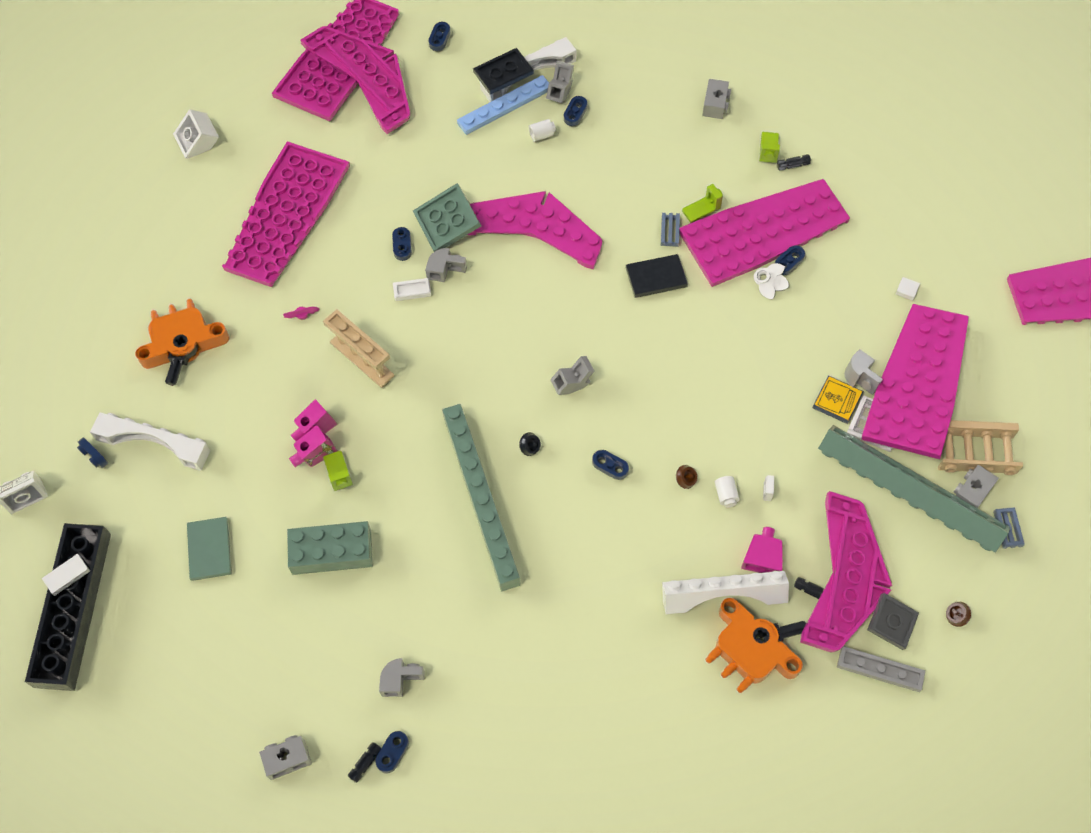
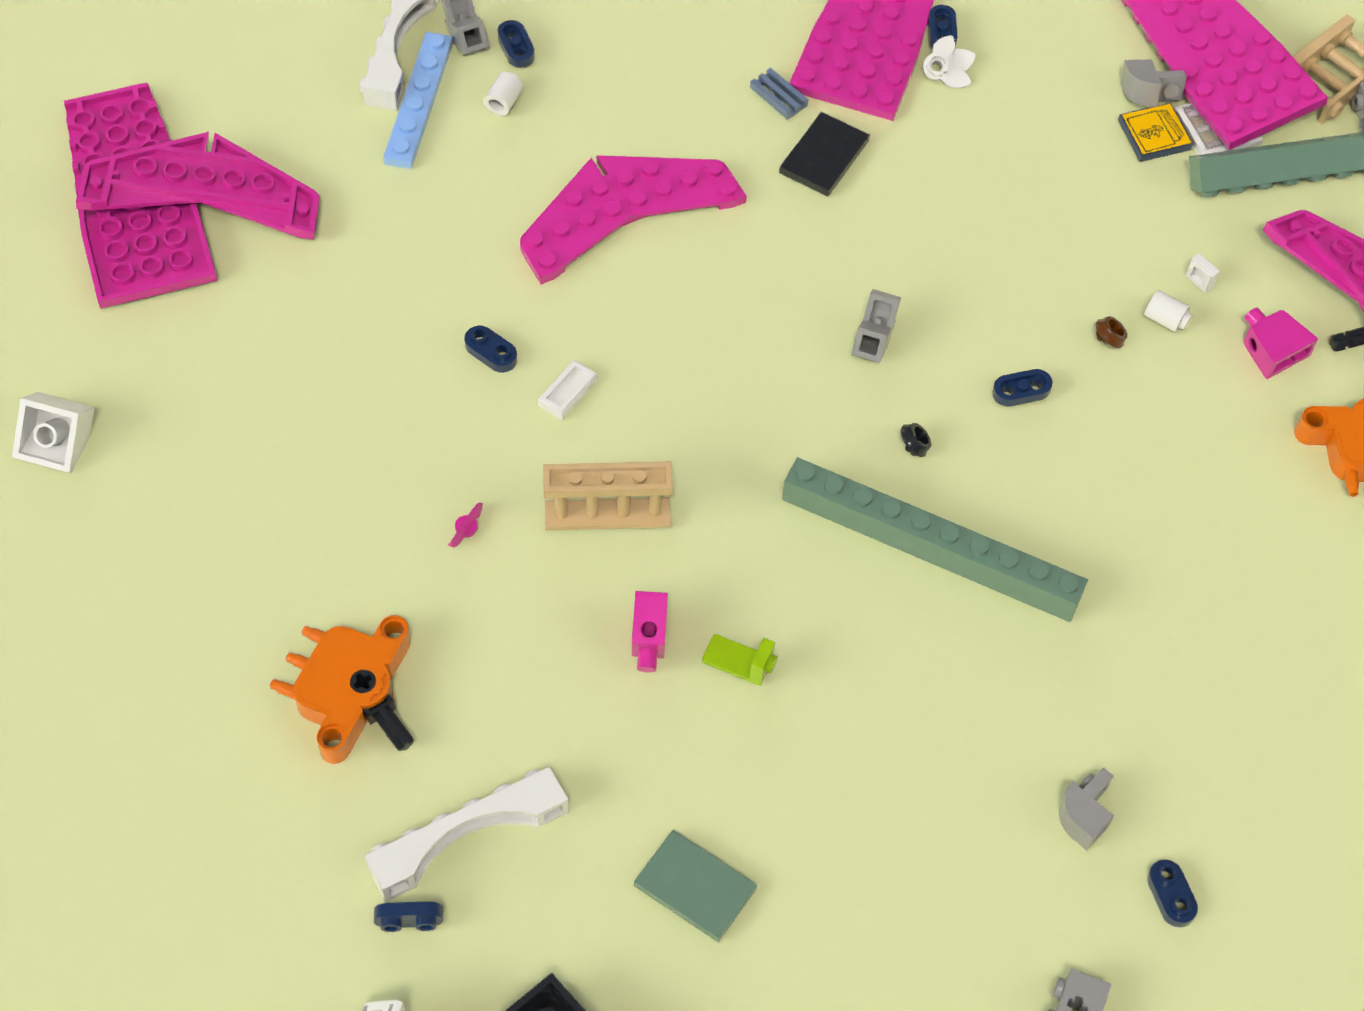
camera: 50 degrees left, 5 degrees down
(284, 212) = (295, 429): dark pink wing -> none
(312, 448) = (685, 656): dark pink torso -> none
(329, 548) = (840, 747): sand green brick -> none
(364, 762) = (1159, 932): black axle -> none
(438, 39) = (242, 82): dark blue plate -> none
(441, 262) = (573, 329): light grey brick -> none
(446, 218) = (517, 273): sand green plate -> none
(503, 71) = (383, 56): black tile -> none
(685, 594) = (1260, 445): white arch -> none
(704, 206) = (788, 36): lime bracket -> none

